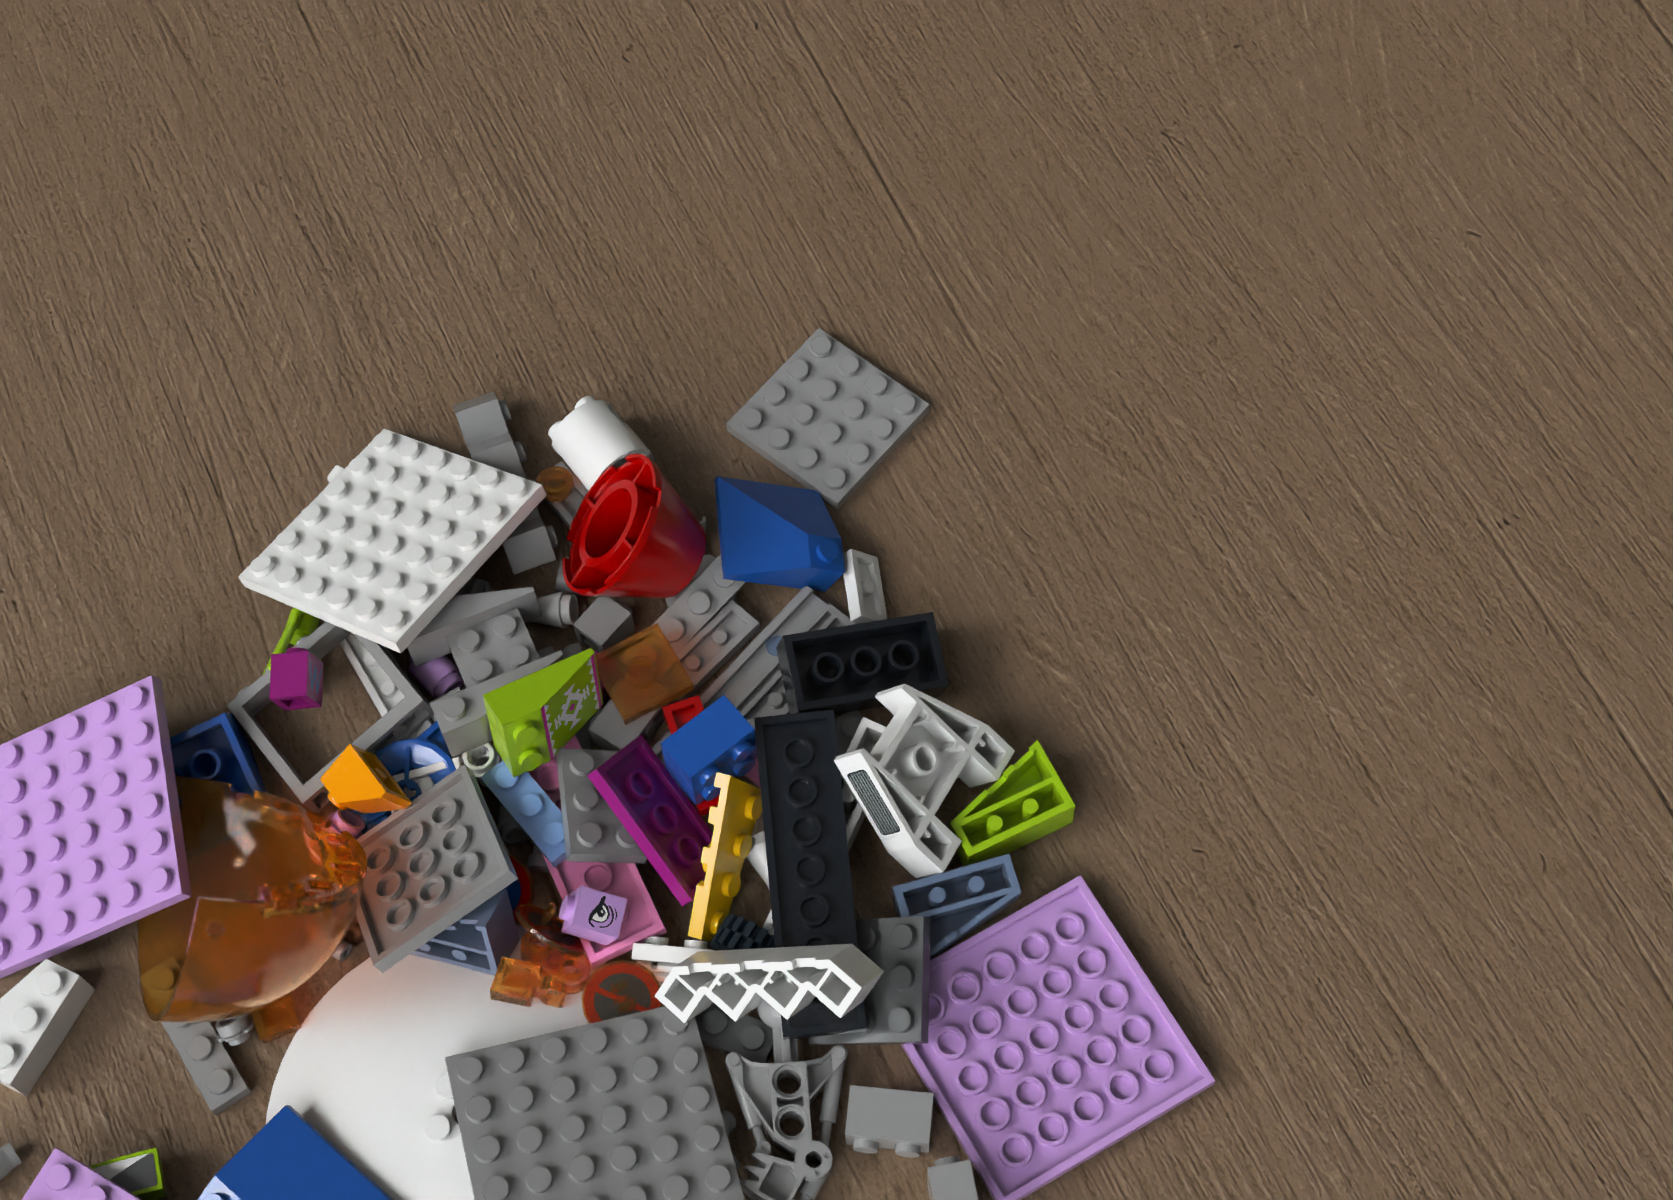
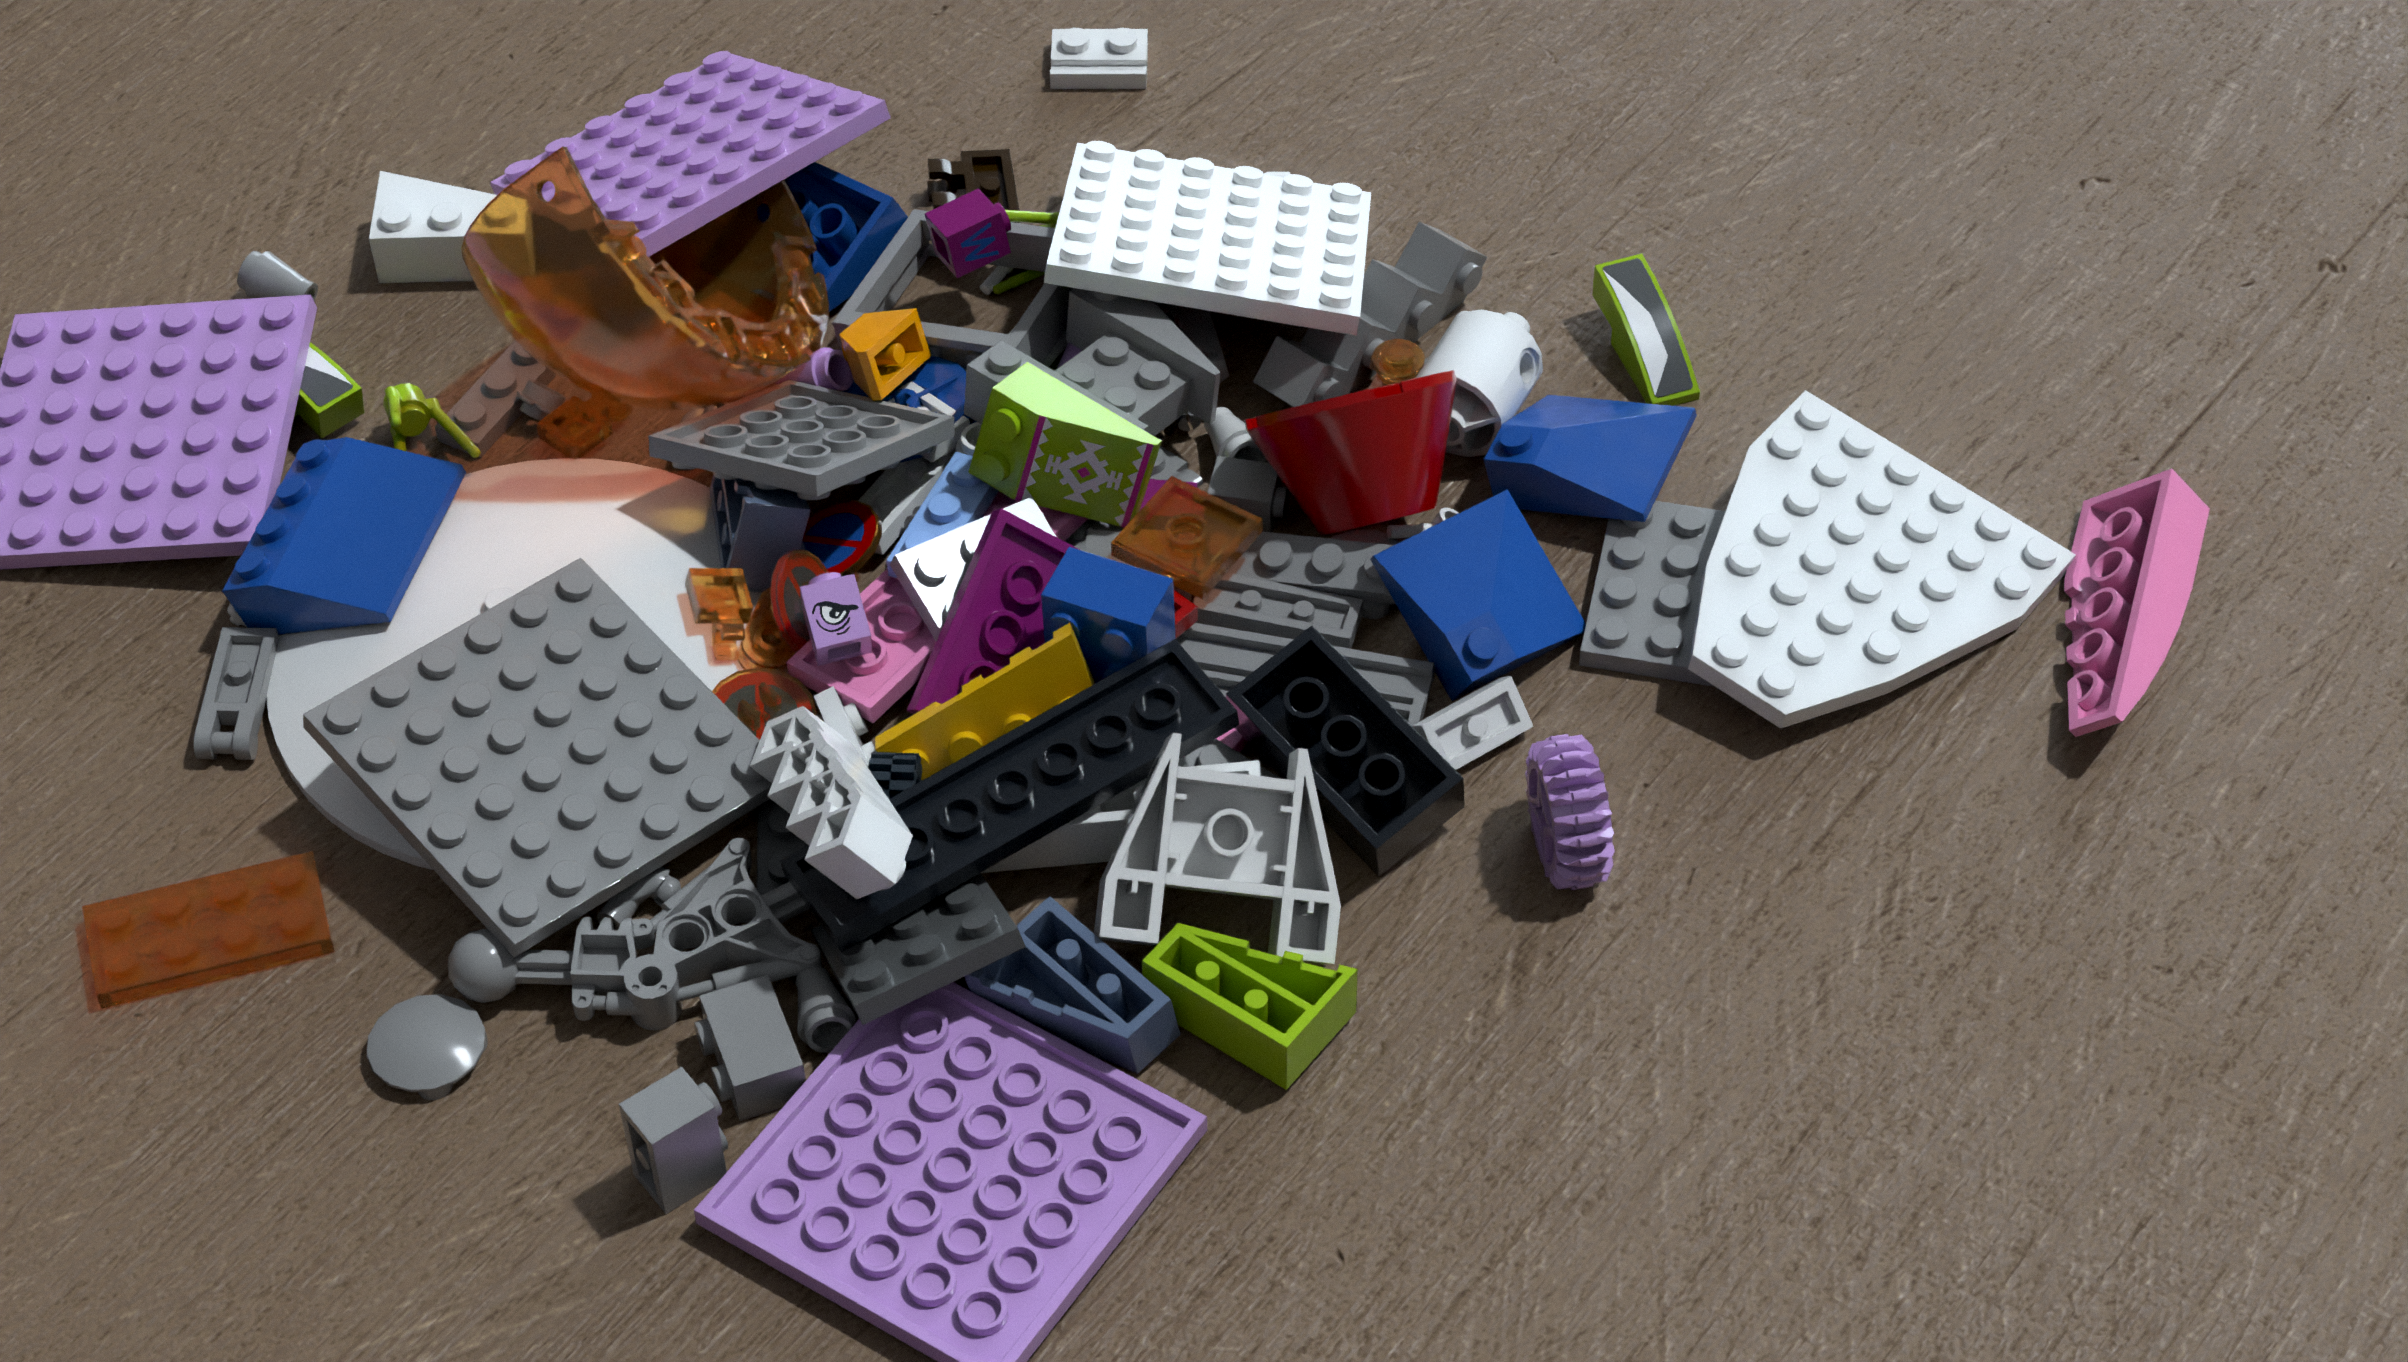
camera: 60 degrees right, 15 degrees down
(141, 528) = (1099, 58): none -> white plate
(193, 1125) = (411, 413): none -> lime plant
(223, 651) = (980, 169): none -> dark brown plate
(608, 340) = (1644, 331): none -> slope
(692, 418) = (1588, 455): none -> blue slope
(864, 332) = (1854, 570): none -> white piece
(879, 1064) = (822, 1010): none -> light grey cone
(965, 213) = (2128, 593): none -> bright pink wedge
(972, 569) = (1569, 811): none -> lavender gear

